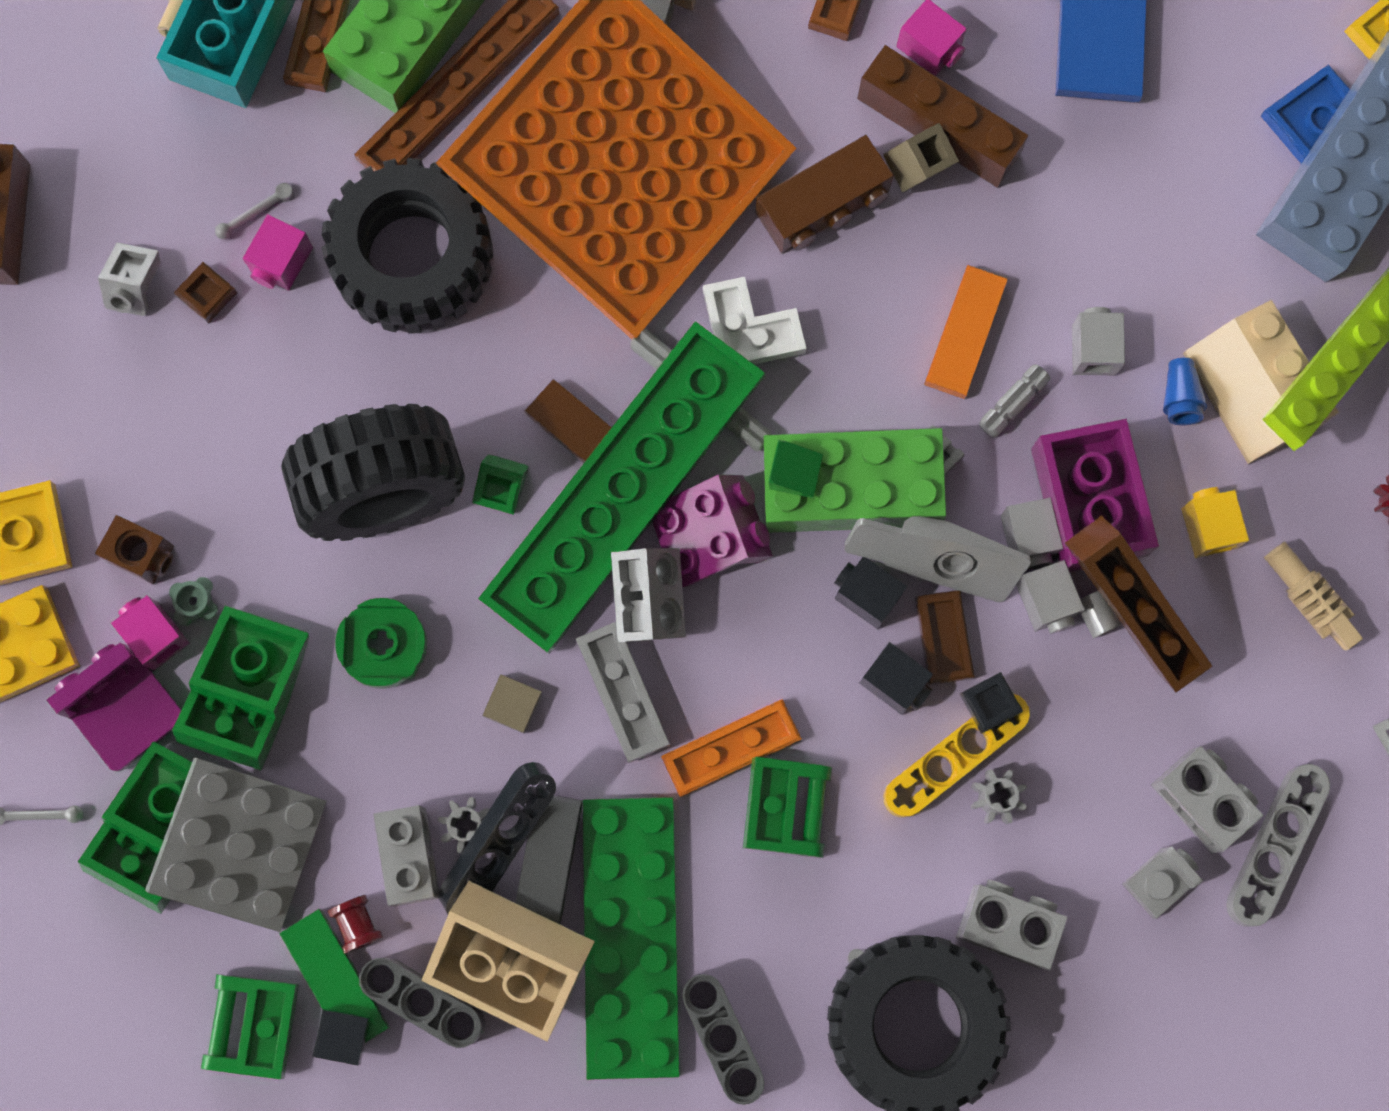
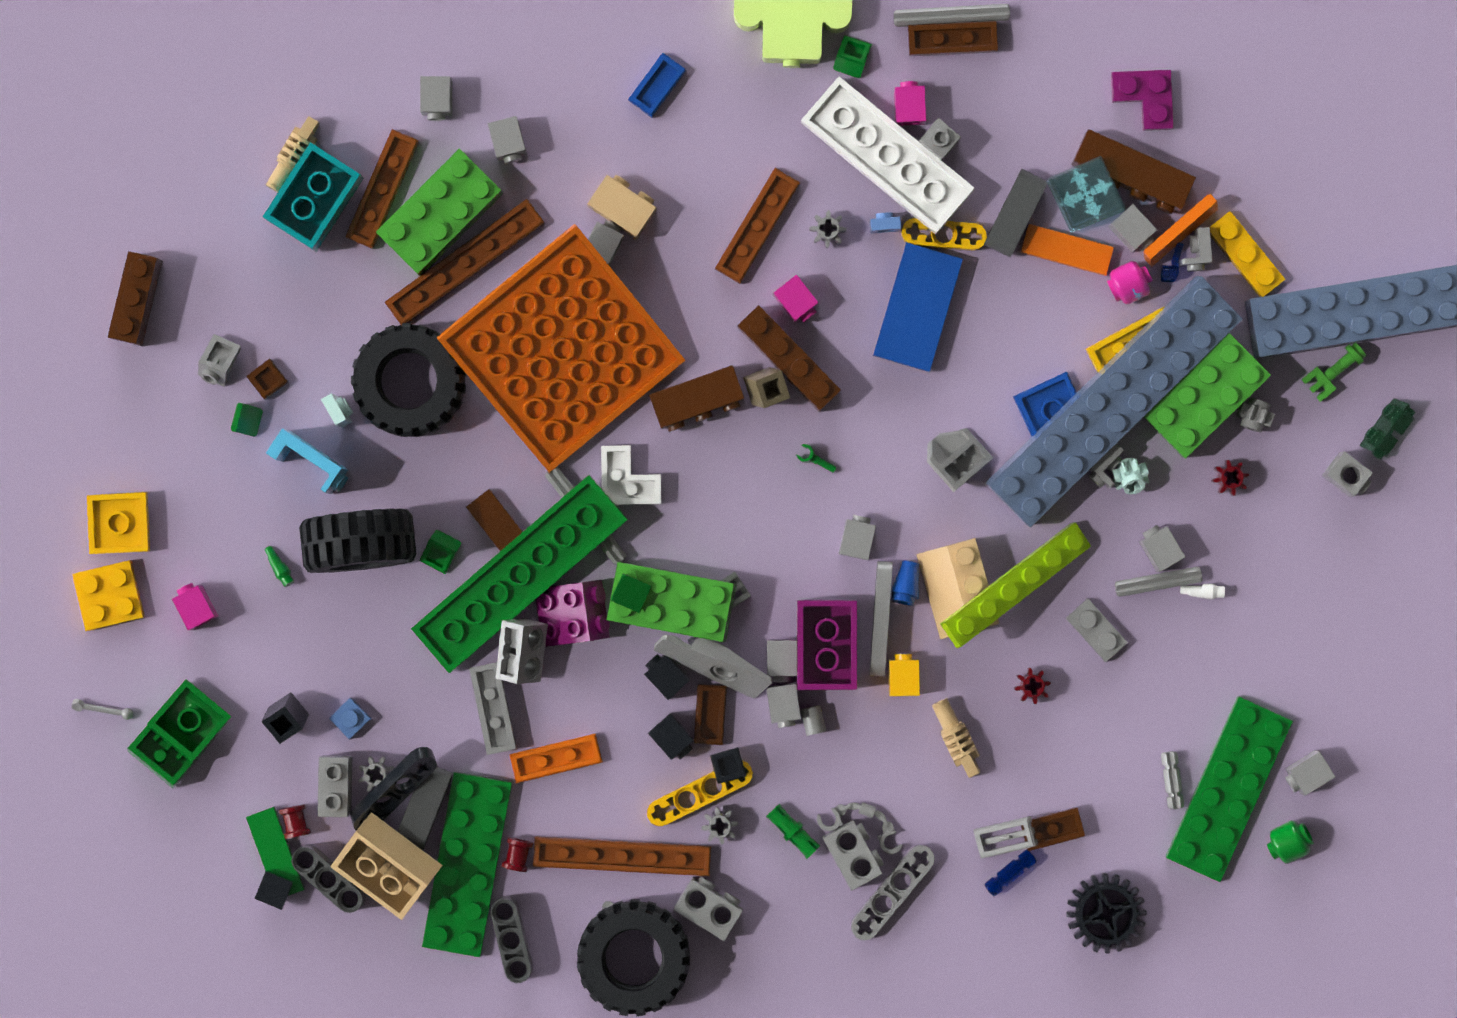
camera: 15 degrees right, 10 degrees up
(116, 705) = (167, 652): magenta bracket -> none
(121, 539) = (181, 550): reddish brown brick -> none
(183, 351) = (246, 419): none -> green slope
(183, 592) = (219, 584): sand green plate -> none
(236, 845) = (228, 758): light grey plate -> none
(241, 688) = (248, 654): green slope -> none
(247, 363) = (289, 441): none -> medium azure panel
(264, 1028) = (226, 875): green plate -> none
(268, 553) = (279, 568): none -> green piece
(277, 253) = (319, 365): dark pink brick -> none
(282, 193) = (331, 317): light grey hinge -> none
(312, 767) = (285, 718): none -> black brick
(313, 303) = (338, 409): none -> light aqua plate
(363, 625) = (328, 653): green plate -> none
(412, 752) = (350, 718): none -> medium blue plate
(512, 704) = (420, 700): dark tan tile -> none
(704, 904) = (517, 854): none -> dark red bush
(773, 807) = (574, 801): green plate -> none
(861, 875) = (622, 856): none -> dark orange tile
(965, 332) = (772, 511): orange tile -> none
(1007, 248) = (816, 459): none -> green hand
(1014, 400) = (793, 565): light grey axle -> none
(1109, 783) = (793, 831): none -> green pin
(1138, 603) = (832, 725): reddish brown brick -> none
(1160, 448) = (880, 618): none -> light grey beam
(1163, 880) = (812, 899): light grey bracket -> none
(1210, 203) = (956, 457): none -> light grey slope
(1211, 731) = (869, 811): none -> light grey piece

